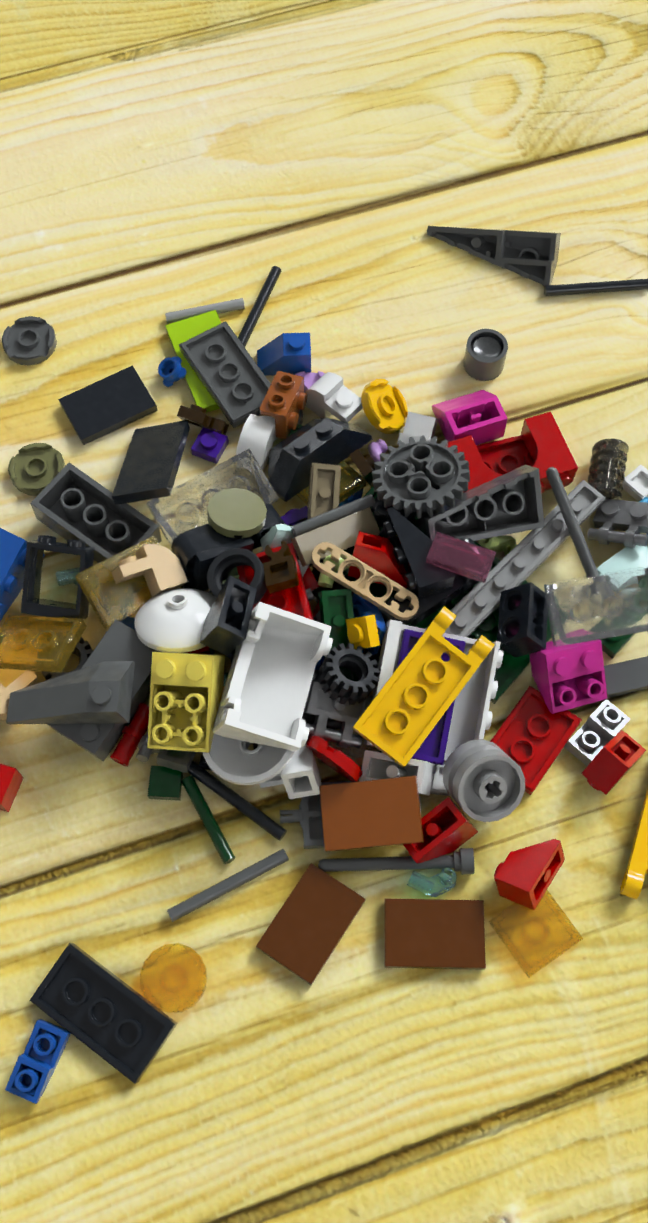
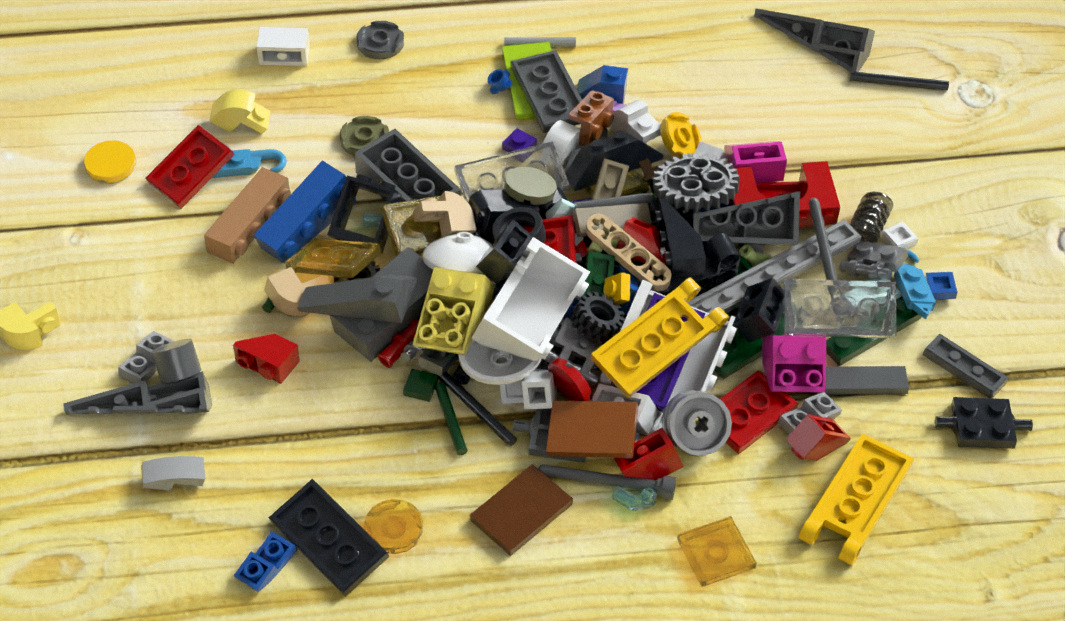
camera: 10 degrees right, 15 degrees down
(108, 405) = (437, 98): black tile -> none
(151, 463) = (465, 141): black tile -> none
(197, 416) = (514, 119): dark brown plate -> none
(227, 885) = (456, 468): dark grey bar -> none
(259, 305) = (589, 45): black bar -> none
(280, 570) = (557, 230): dark brown plate -> none
(434, 934) = (626, 537): reddish brown tile -> none
(460, 557) = (714, 242): clear pink tile -> none
(485, 354) = (782, 113): dark grey piece -> none
(529, 872) = (721, 502): red slope -> none

